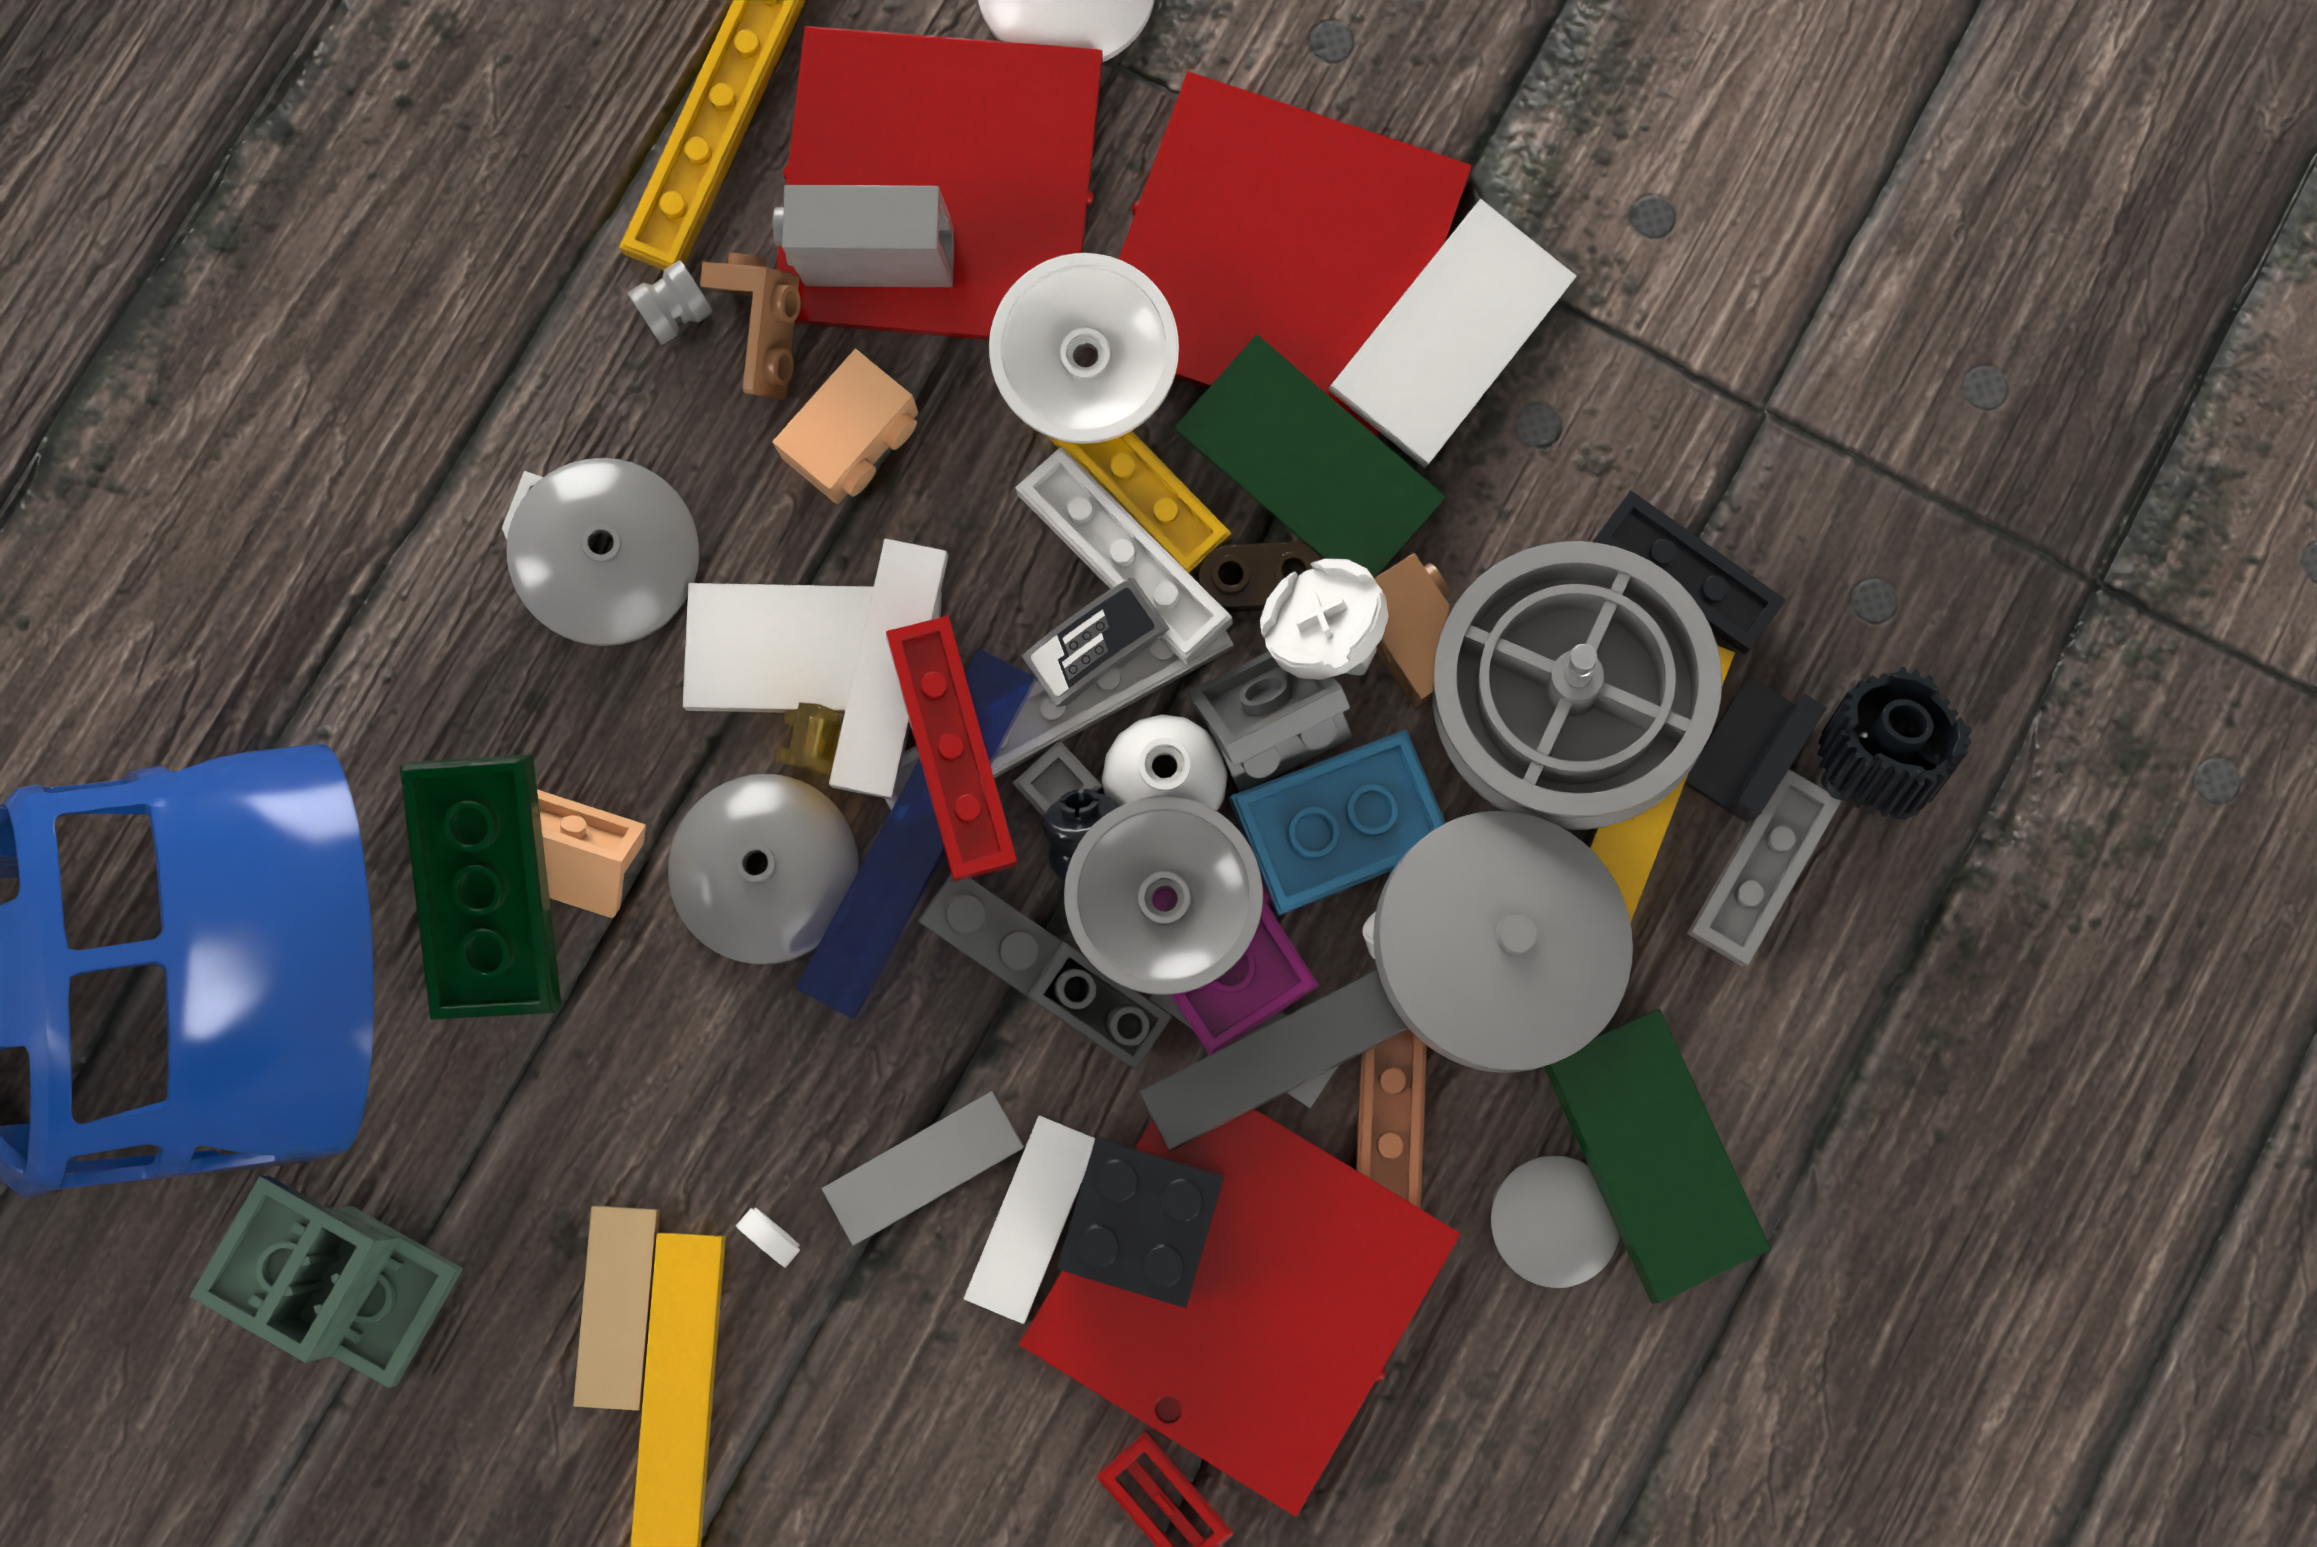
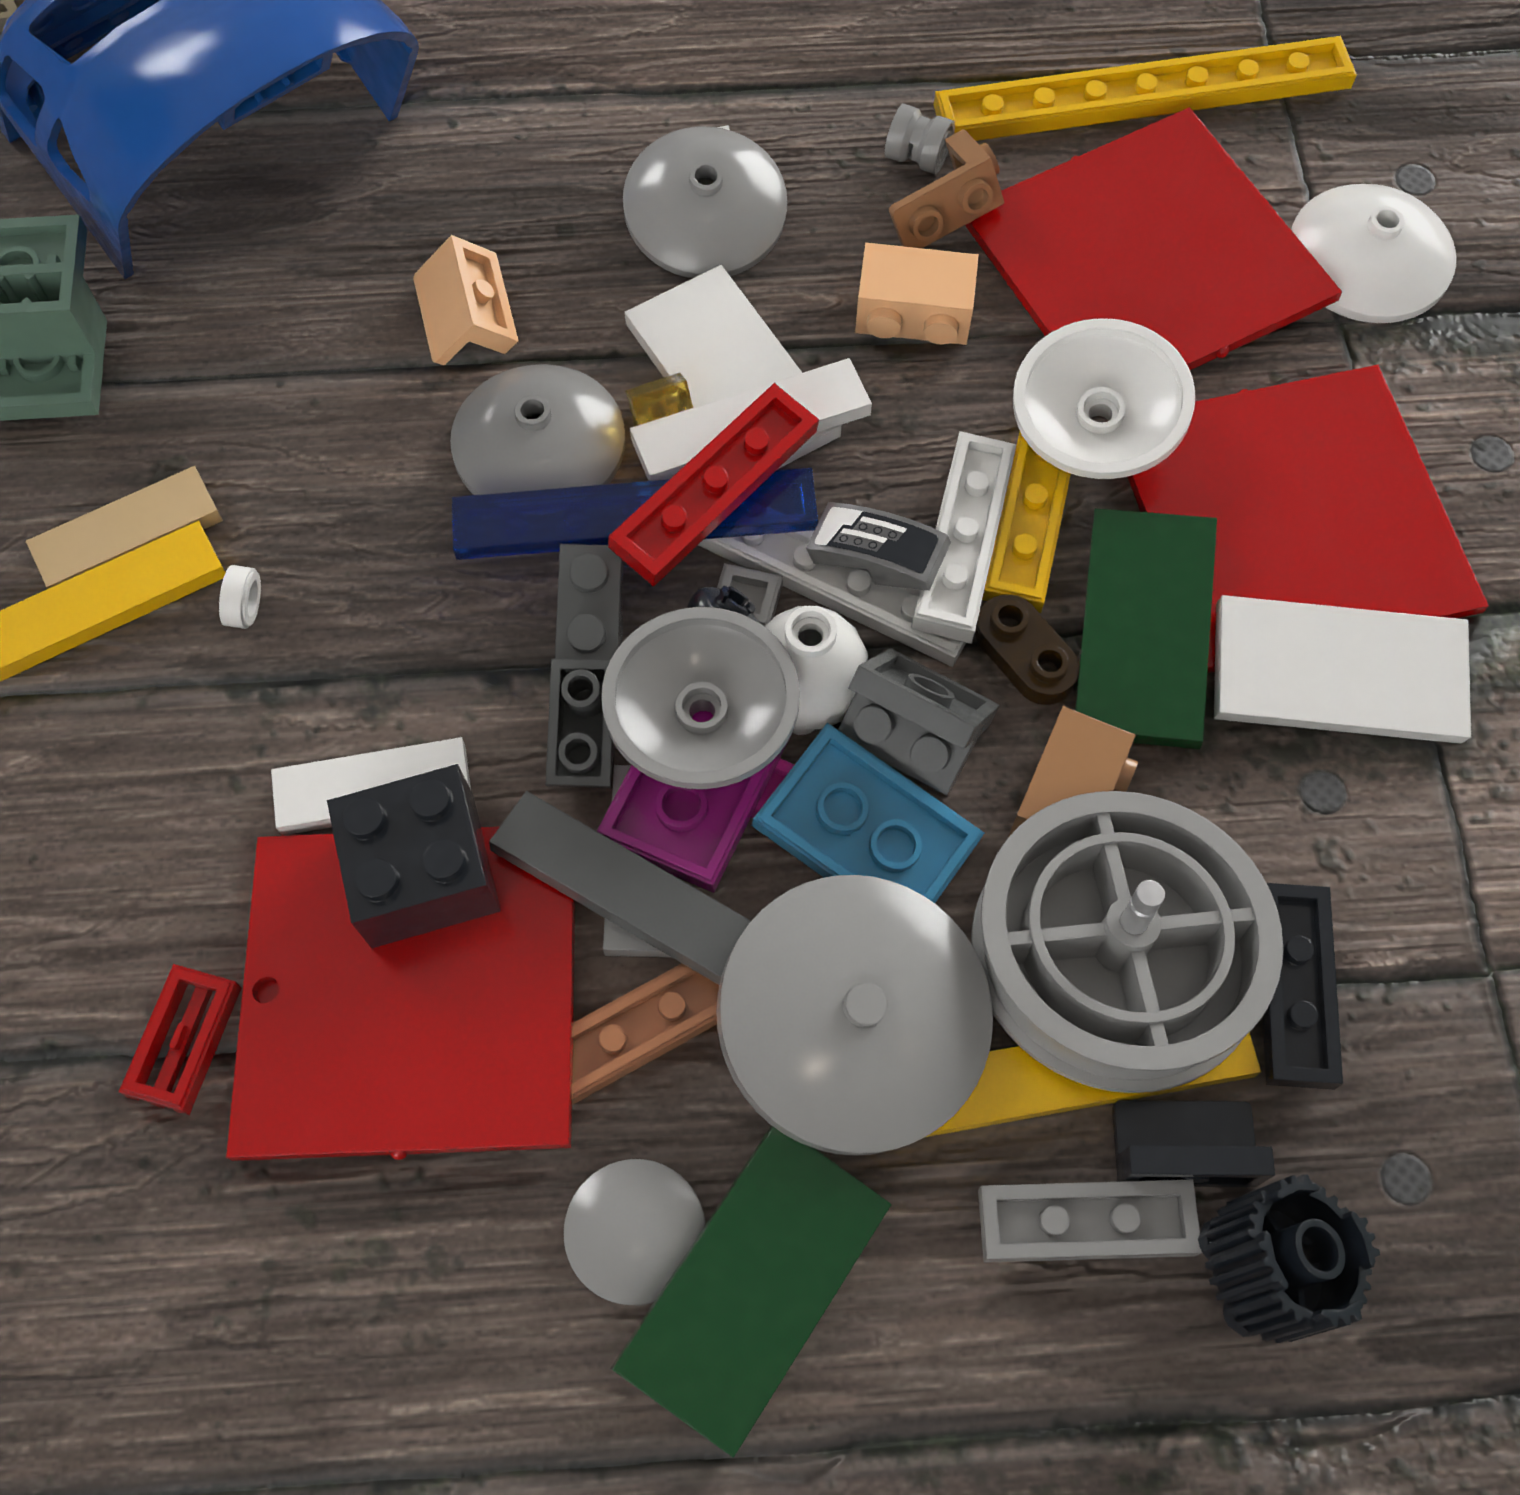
camera: 55 degrees right, 15 degrees down
(481, 887) = (396, 253): dark green tile -> none
(866, 235) = (1069, 207): light grey brick -> none
(923, 1168) = (366, 681): light grey tile -> none
(1325, 620) = (1023, 701): white tile -> none

